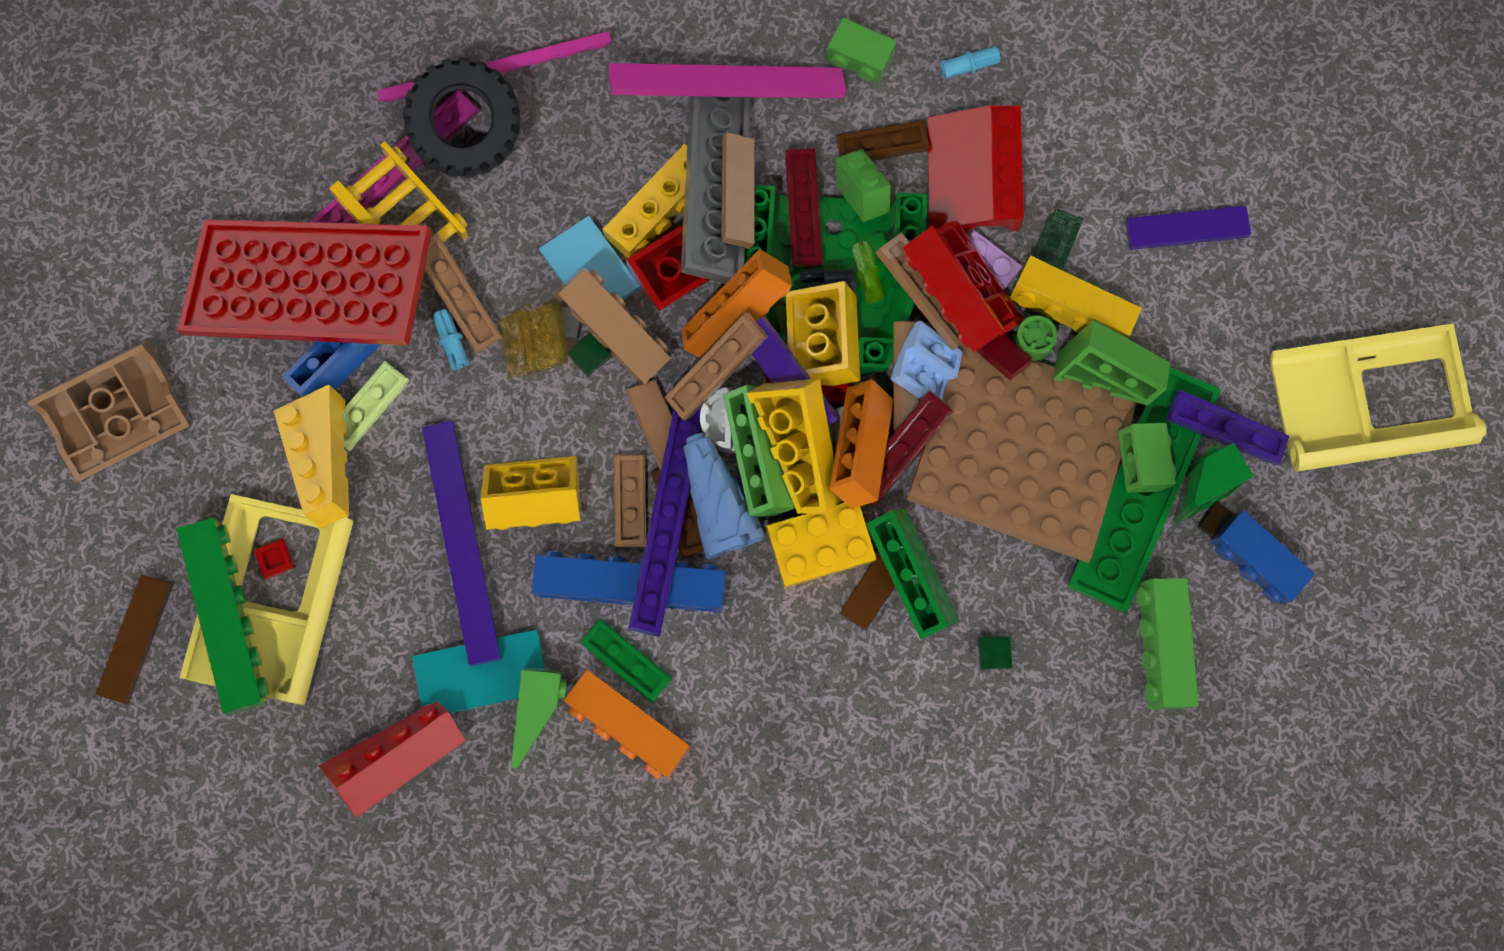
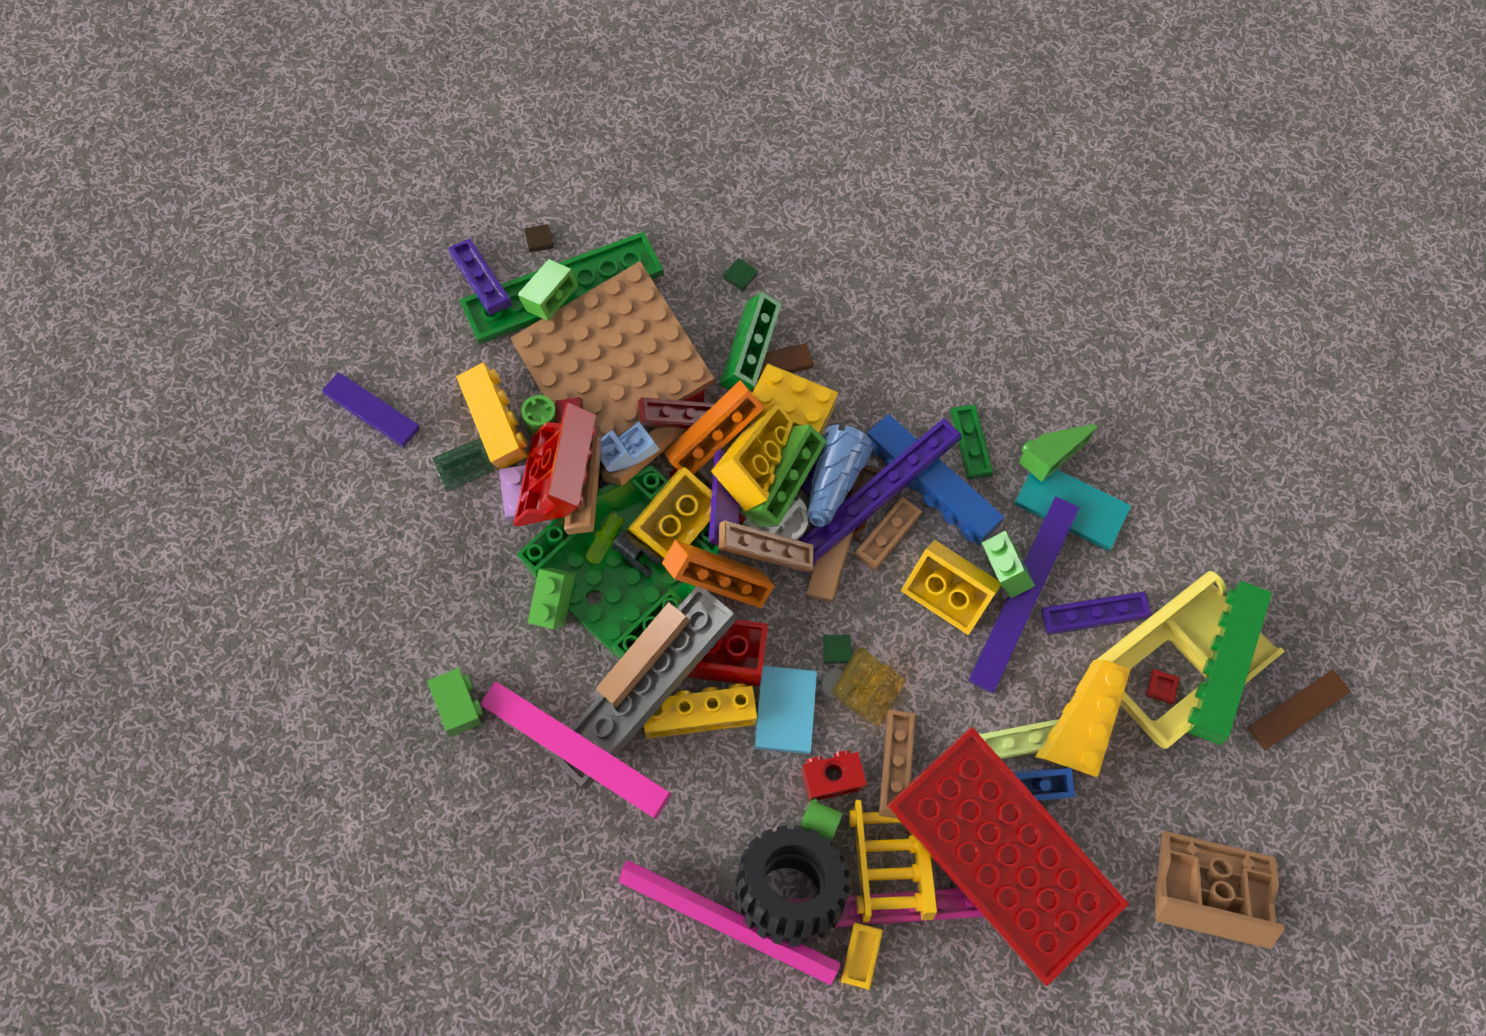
camera: 145 degrees left, 10 degrees down
(370, 127) = (861, 955): none -> yellow tile
(382, 581) = (1096, 613): none -> dark purple tile
(391, 757) = (1174, 490): red wedge -> none
(450, 339) = (926, 737): medium azure axle -> none
(482, 194) = (821, 819): none -> bright green piece
(492, 546) = (1008, 564): none -> brick
(504, 225) = (850, 771): none -> red brick
(613, 325) = (808, 649): medium nougat wedge -> none
(627, 724) = (1002, 401): orange brick -> none
(803, 208) = (604, 620): dark red tile -> none
(886, 141) = (504, 628): reddish brown tile -> none
(970, 62) = (389, 632): medium azure axle -> none
(976, 168) = (463, 553): red piece -> none
(1114, 363) = (510, 358): bright green wedge -> none
(1167, 644) = (638, 197): bright green brick -> none
(1211, 480) = (529, 241): green slope -> none
(1261, 558) = (538, 197): blue brick -> none
(1327, 405) = (405, 248): light yellow piece -> none

